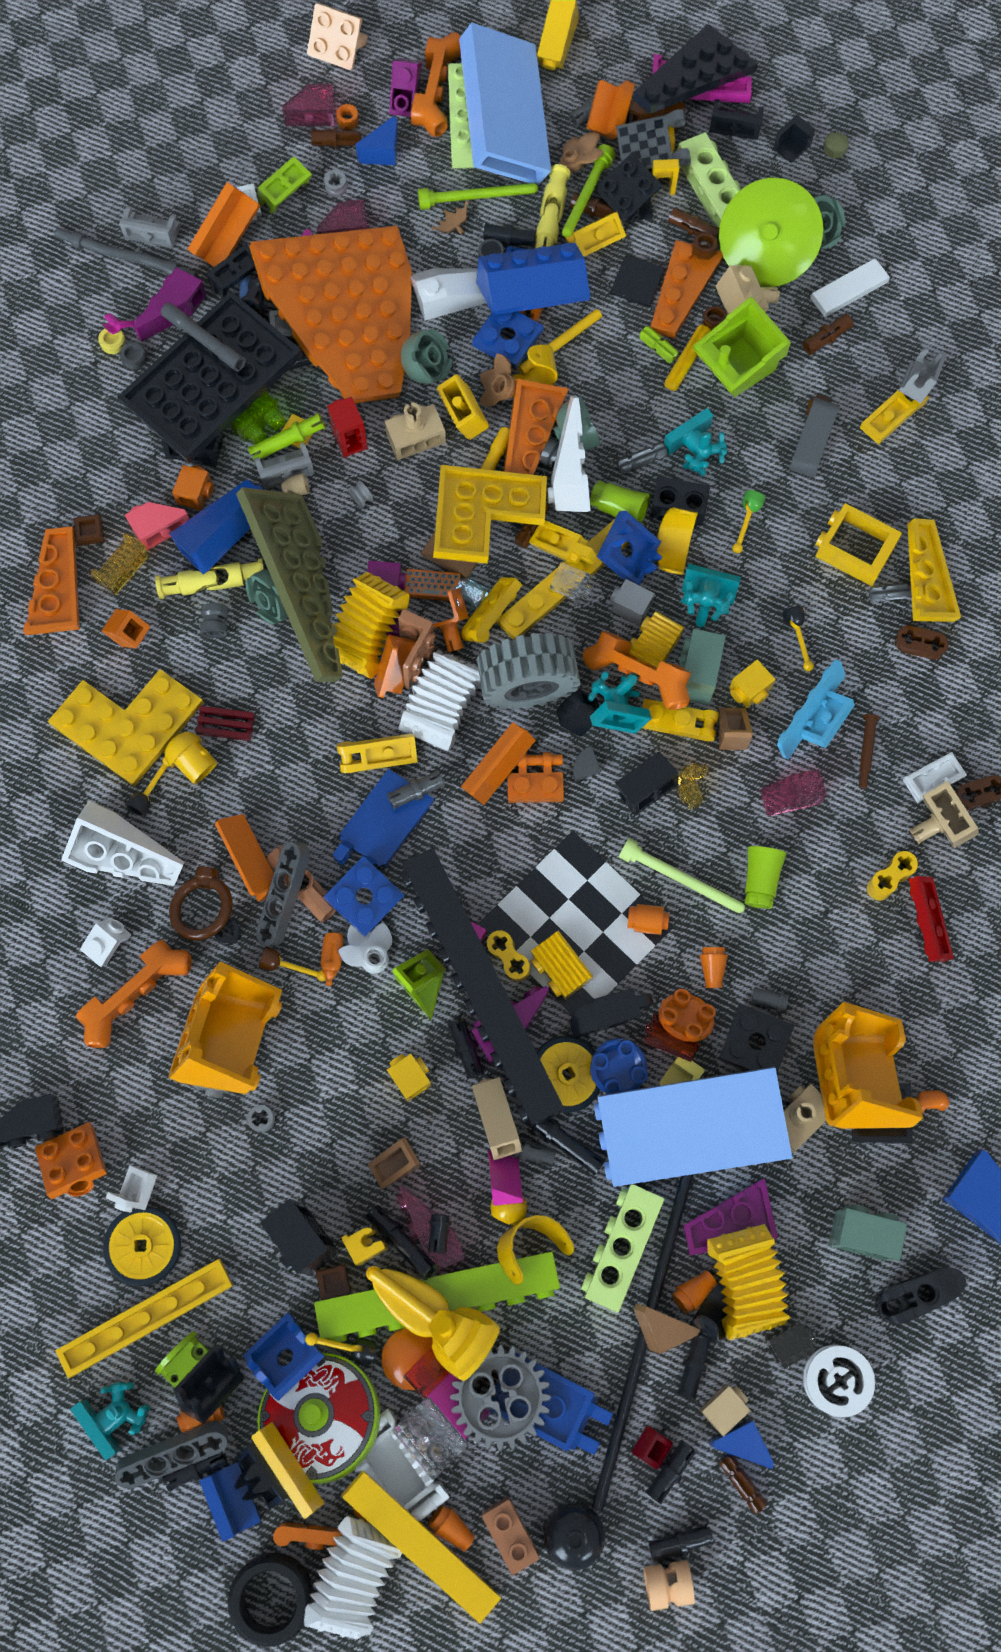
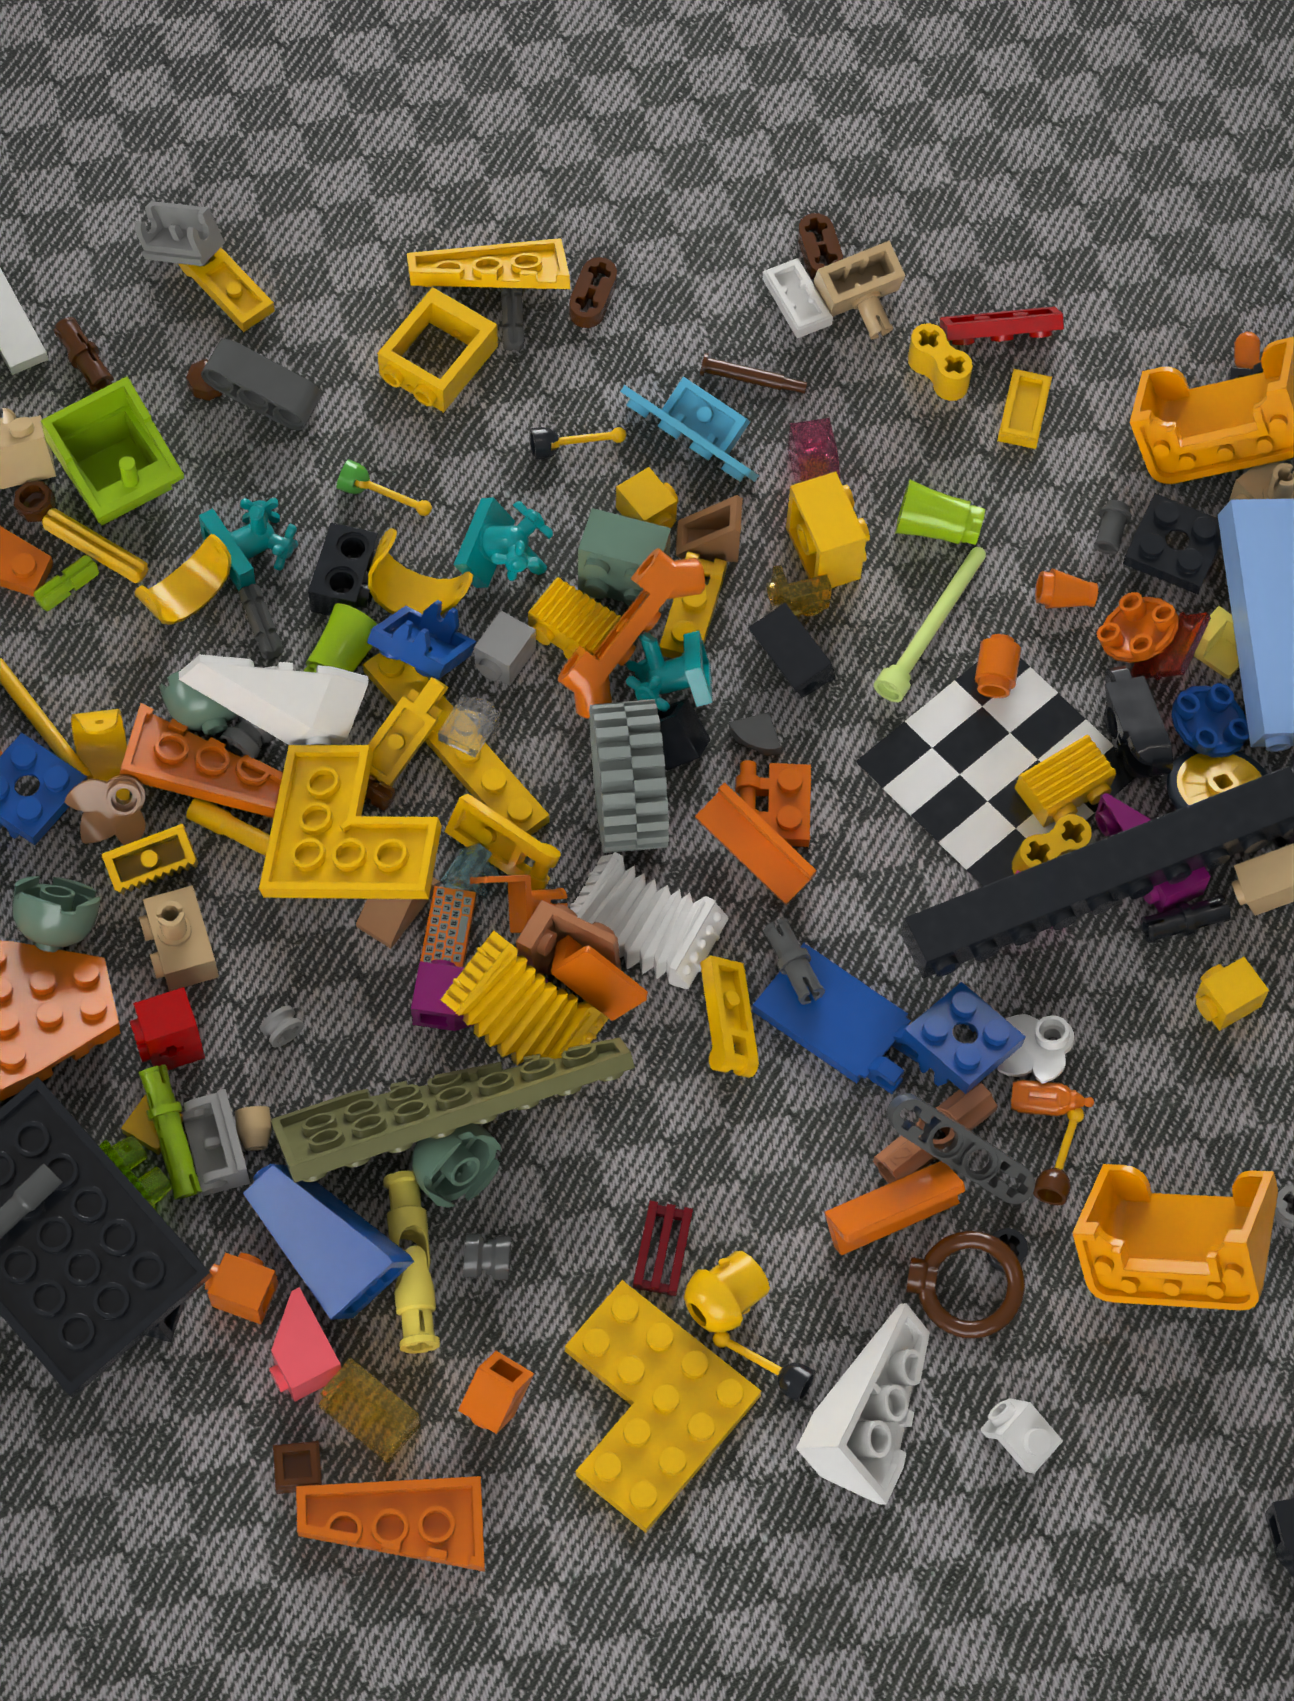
camera: 90 degrees left, 10 degrees down
(98, 1016) = (1143, 1440): orange plate -> none
(421, 980) = (1081, 976): lime slope -> none
(654, 405) = (189, 585): none -> yellow piece
(736, 797) = (827, 529): none -> yellow brick
(864, 939) = (1024, 408): none -> yellow tile

